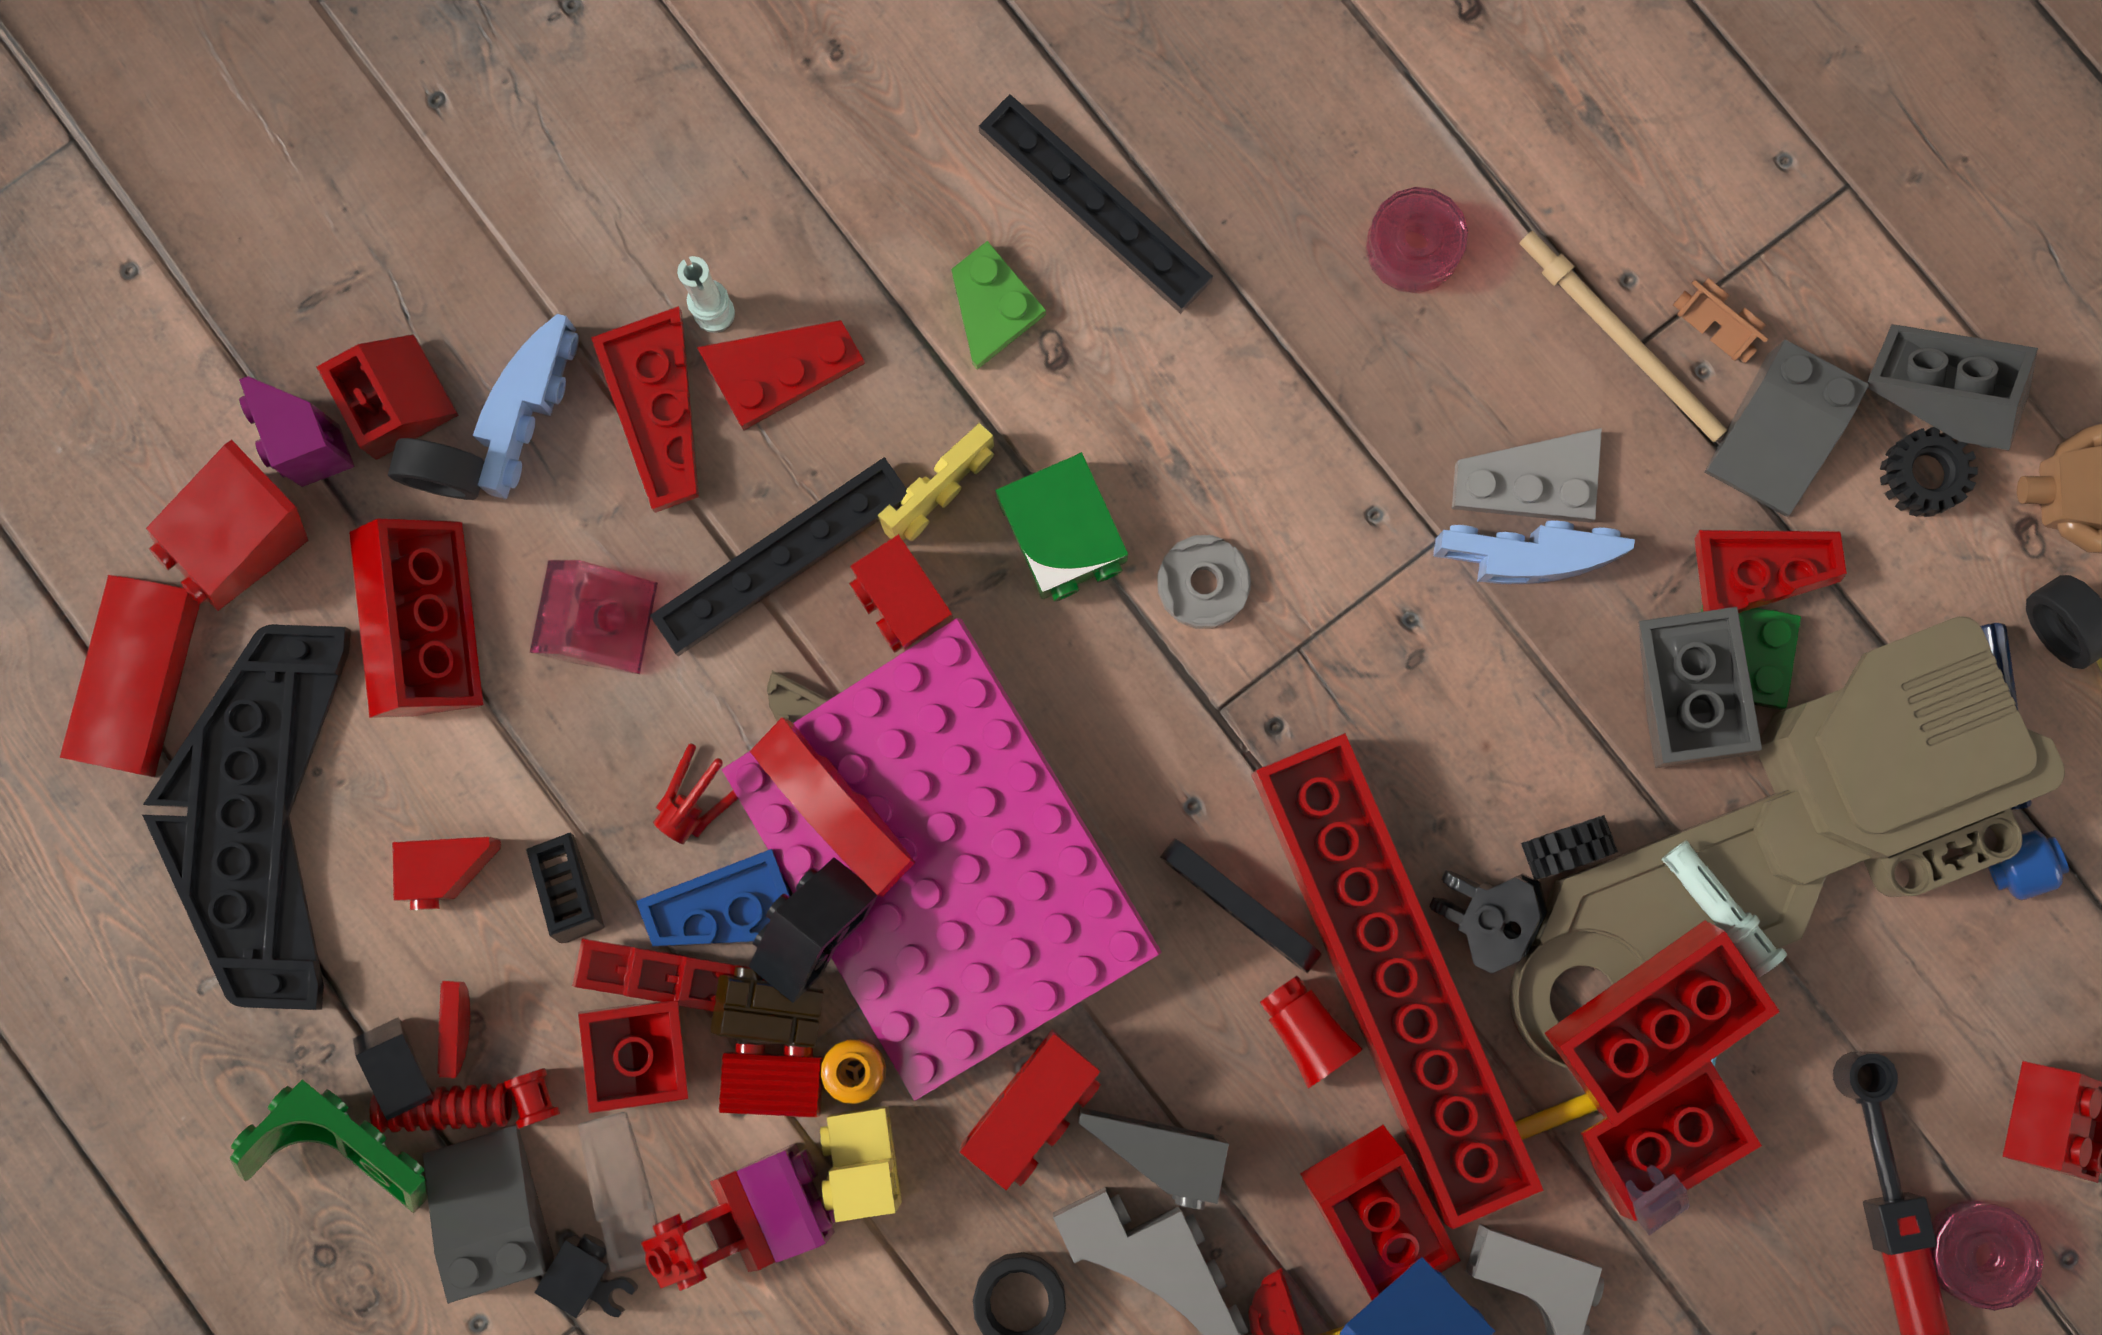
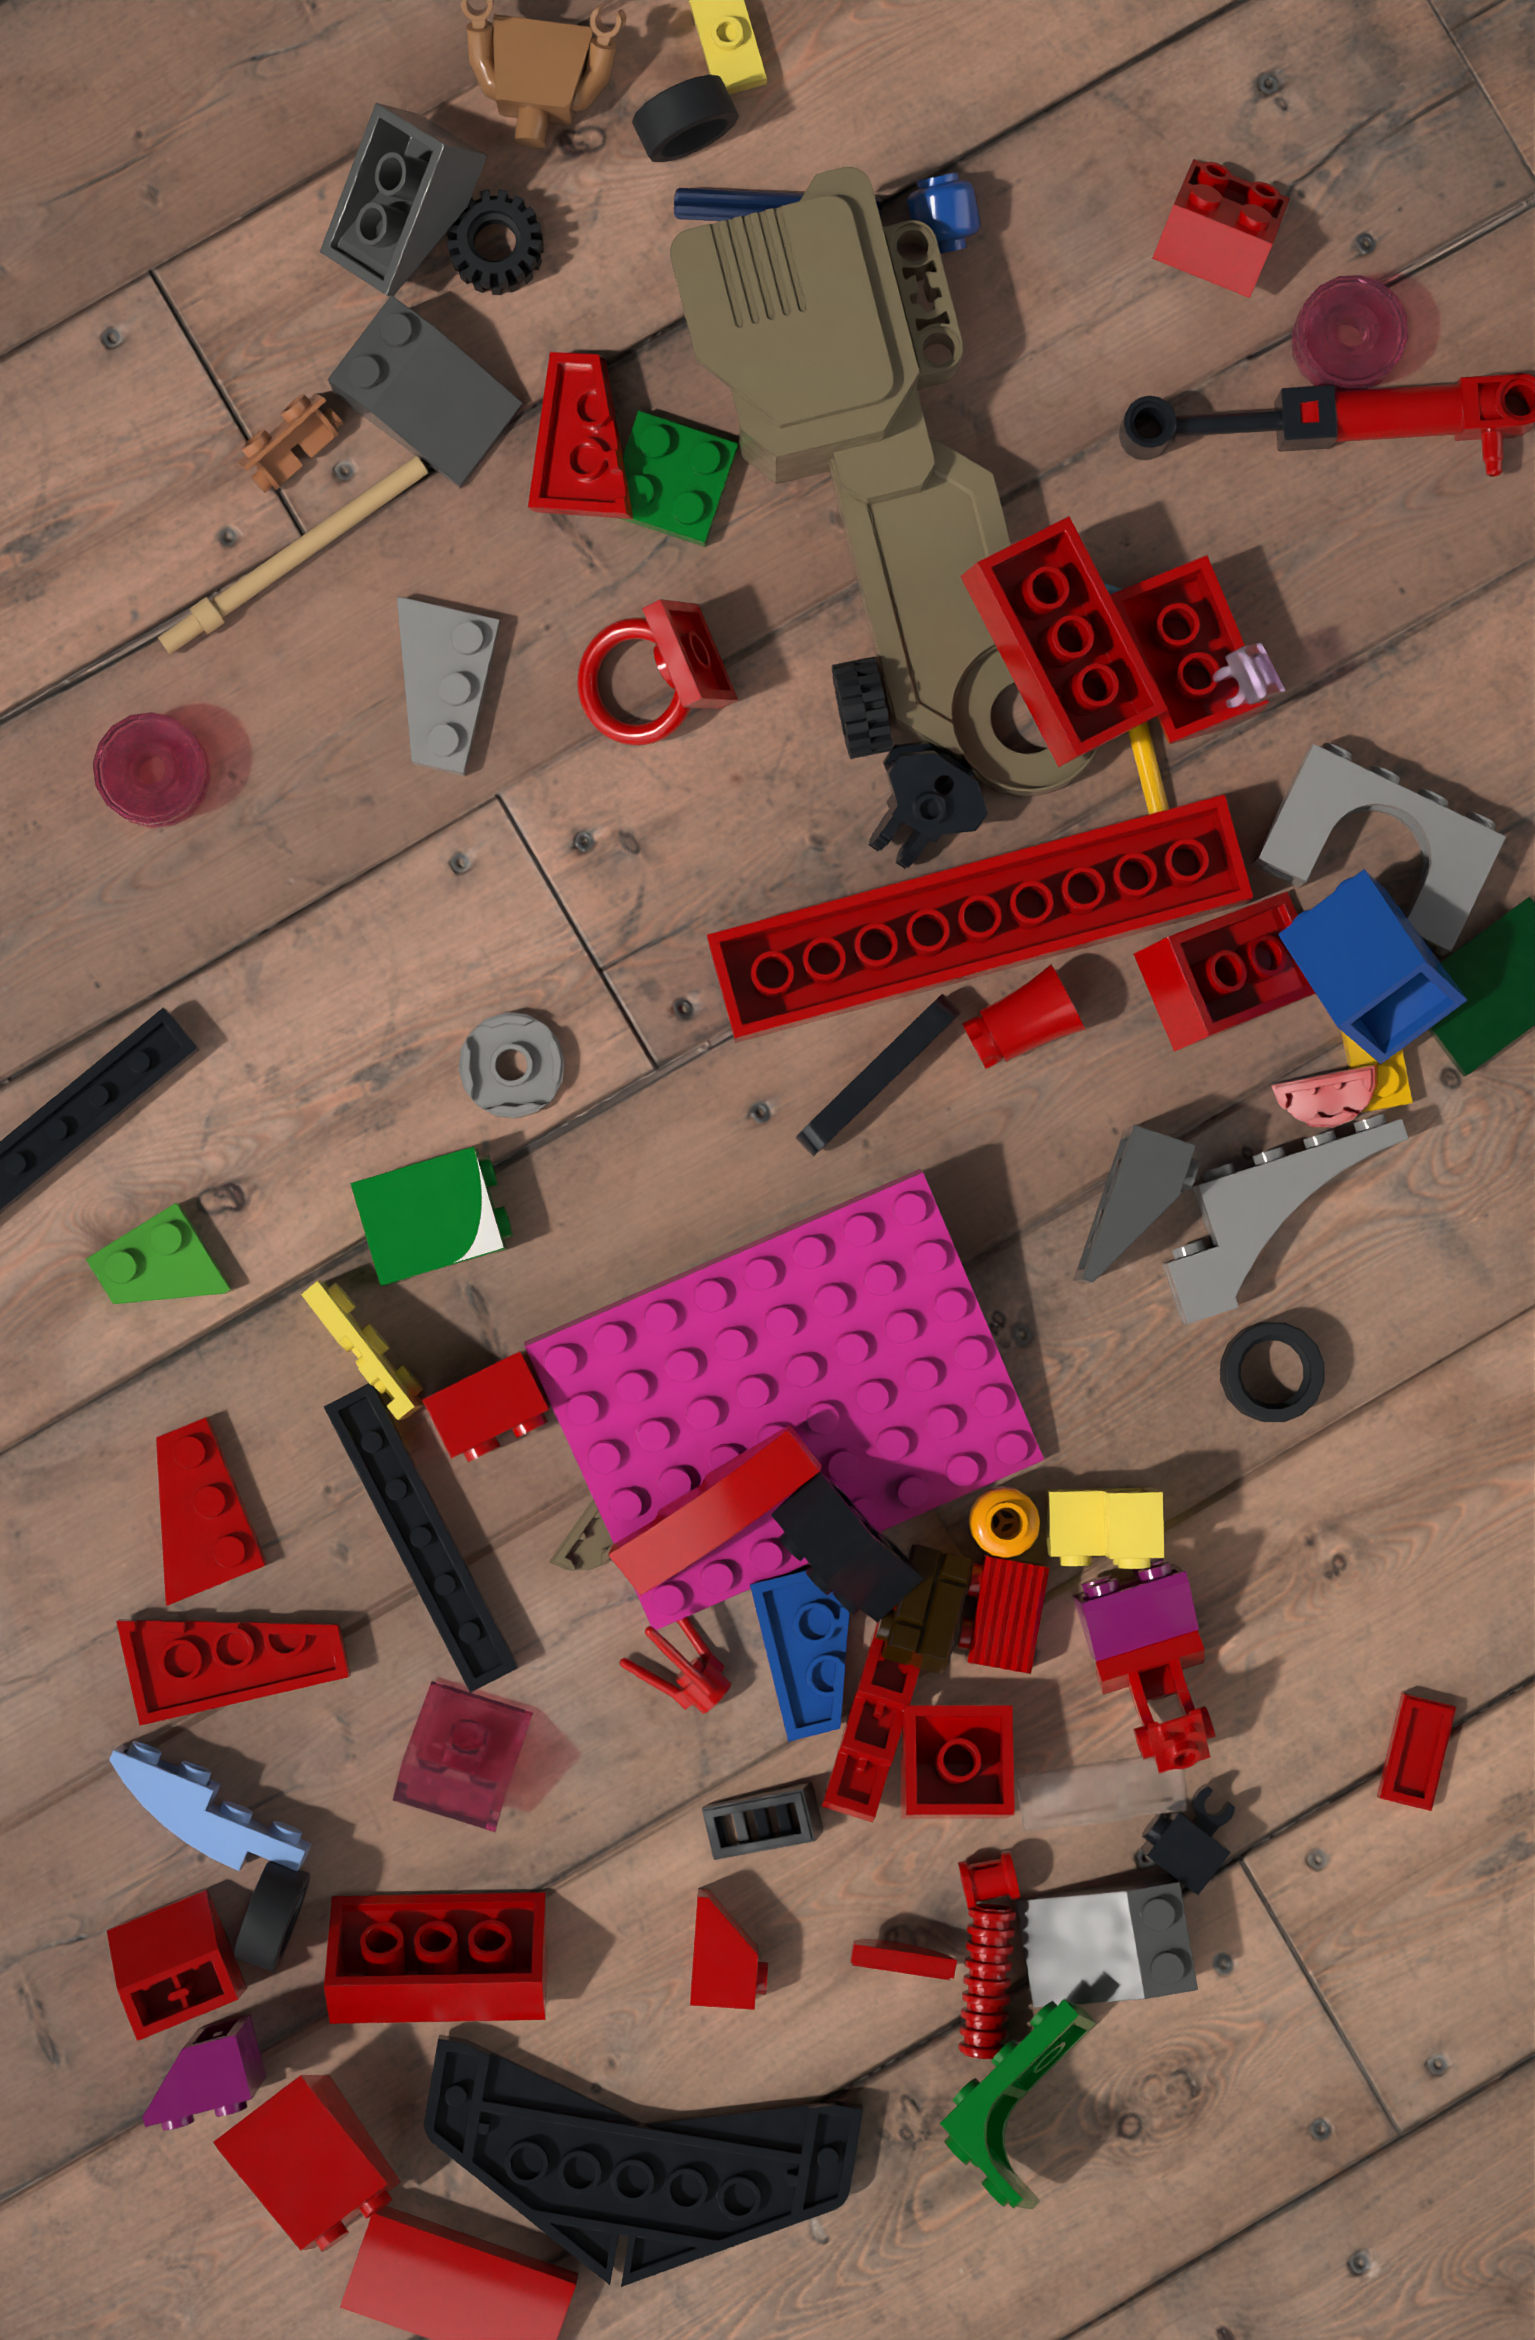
camera: 85 degrees left, 5 degrees up
(391, 1068) = (937, 2029): black slope -> none
(706, 297) = (115, 1586): light aqua pin -> none
(1031, 1111) = (1072, 1333): red slope -> none
(1550, 555) = (534, 675): light blue slope -> none
(1588, 683) = (684, 658): none -> red tile
(1697, 688) = (705, 540): dark grey slope -> none
(1723, 910) = (972, 543): light aqua pin -> none

